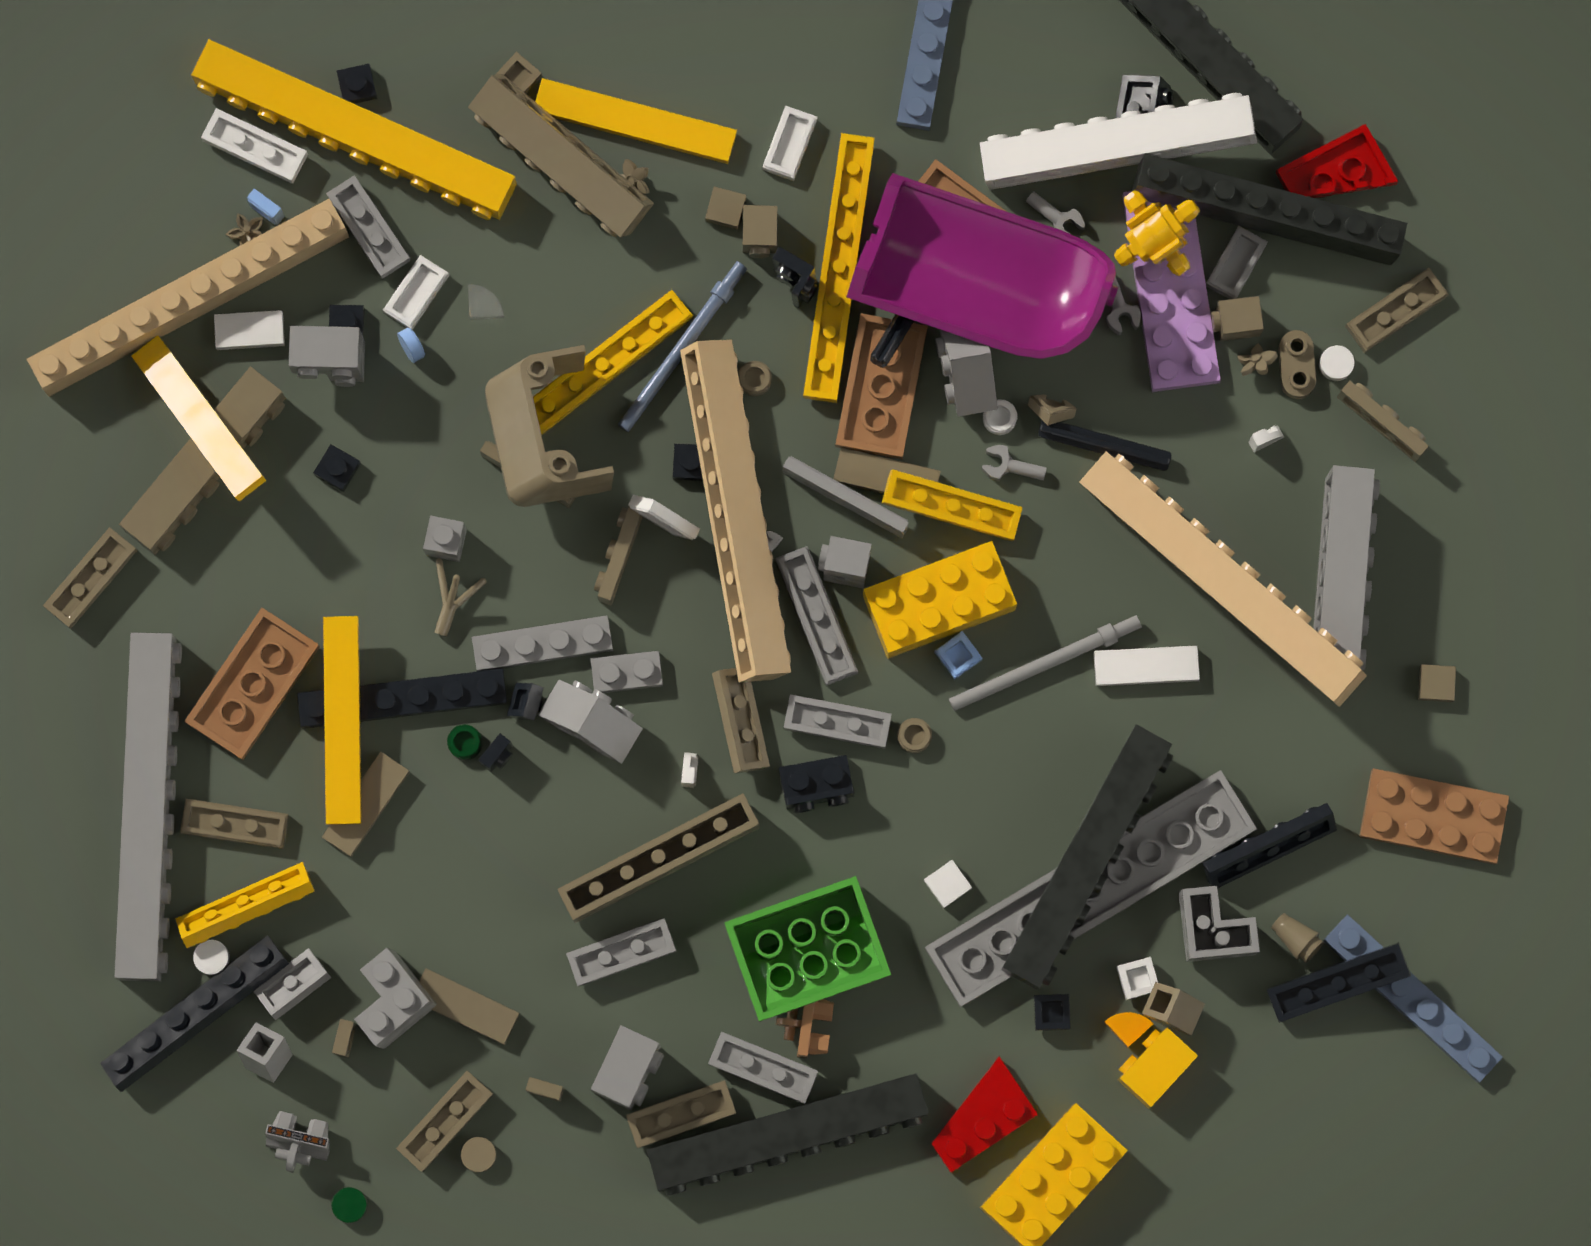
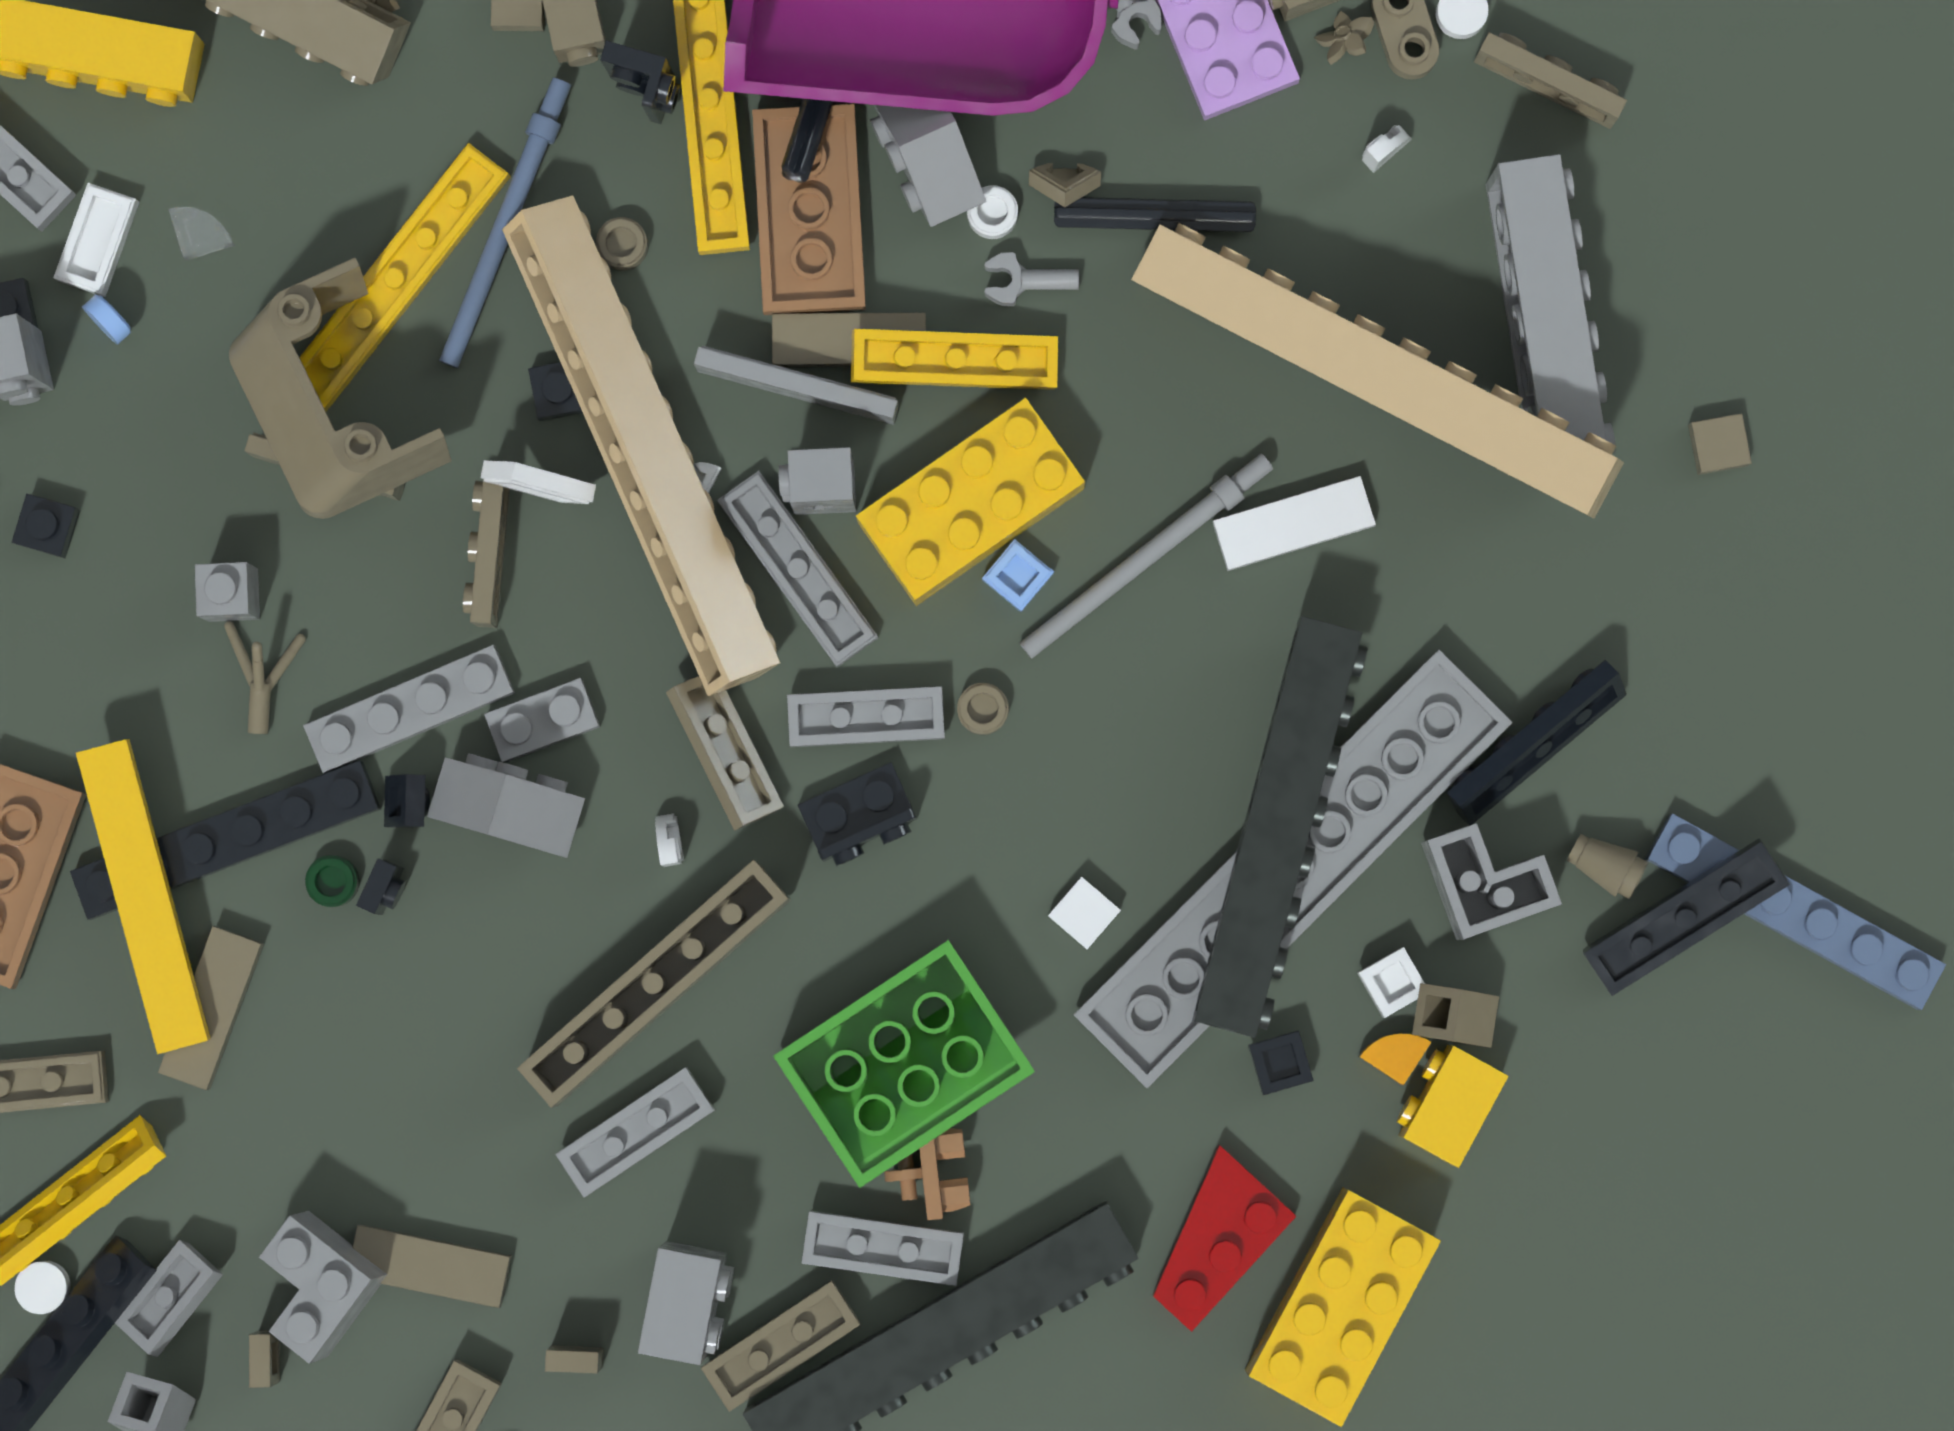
camera: 10 degrees left, 5 degrees up
(1434, 816) = (1762, 639): medium nougat plate -> none

